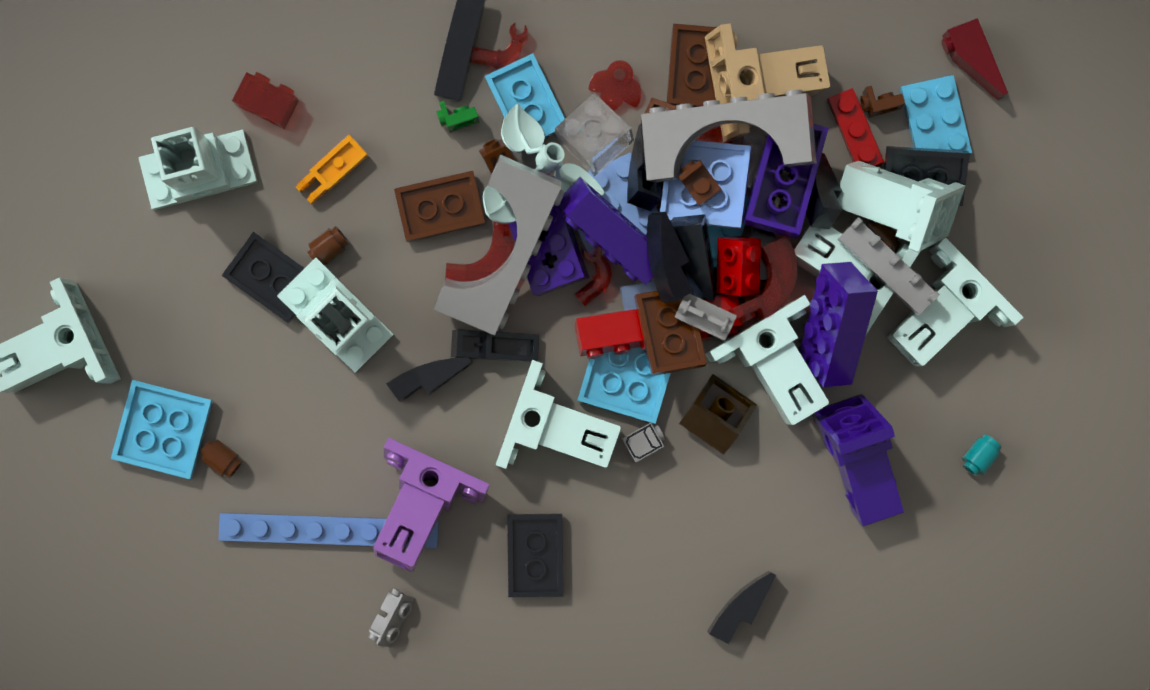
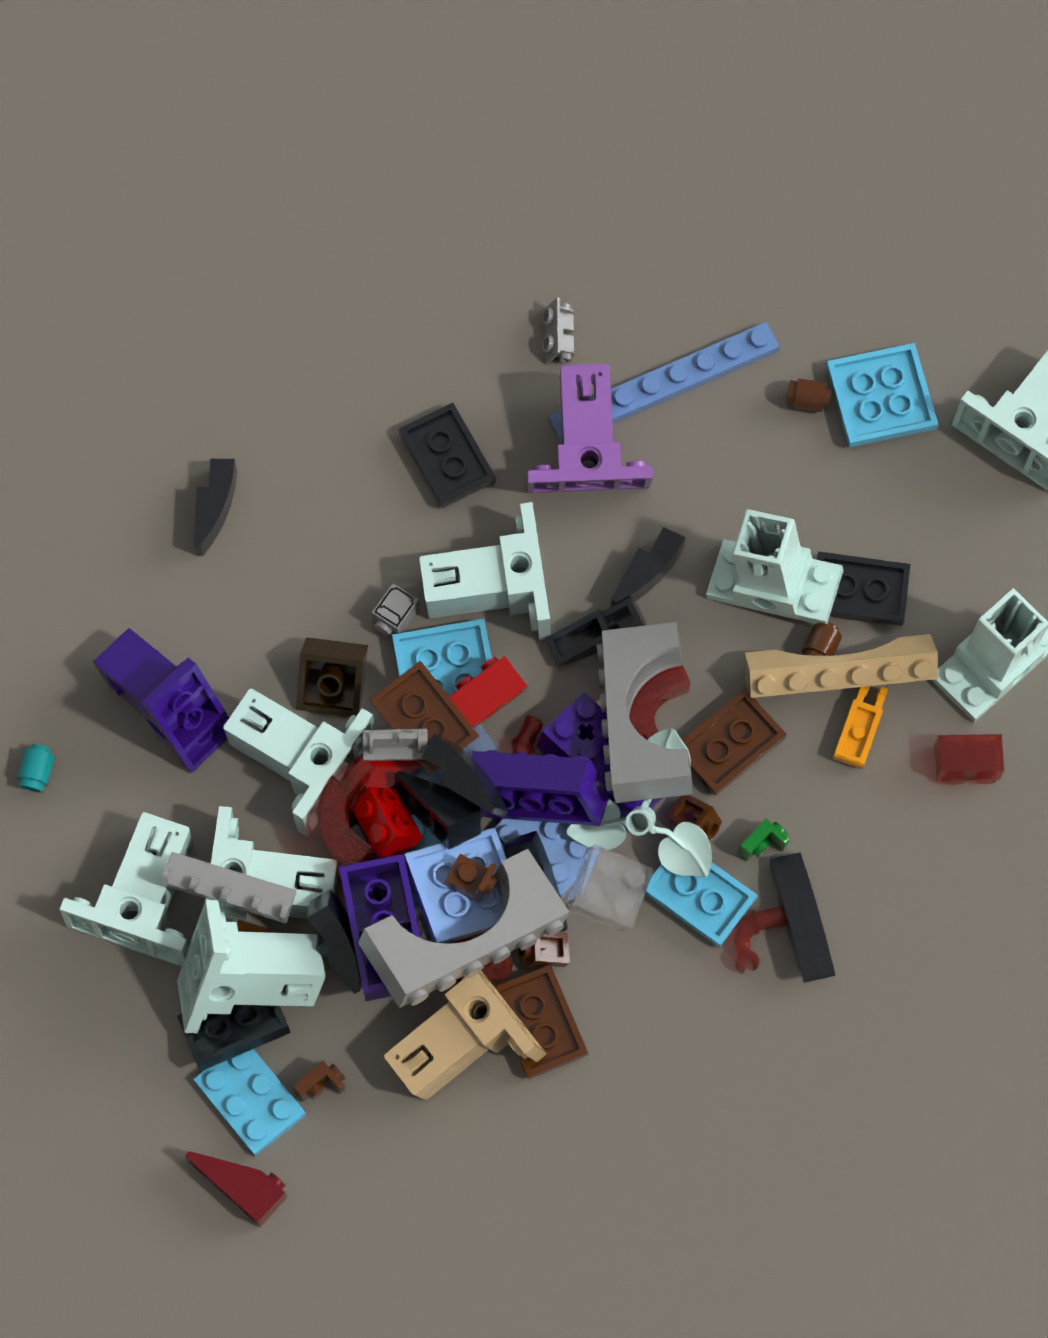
camera: 155 degrees right, 15 degrees down
(372, 236) = (790, 673): none -> tan arch
(616, 90) = (613, 954): clear red plate -> none
(837, 323) = (254, 804): dark purple brick -> none
(854, 128) = (333, 1043): red plate -> none

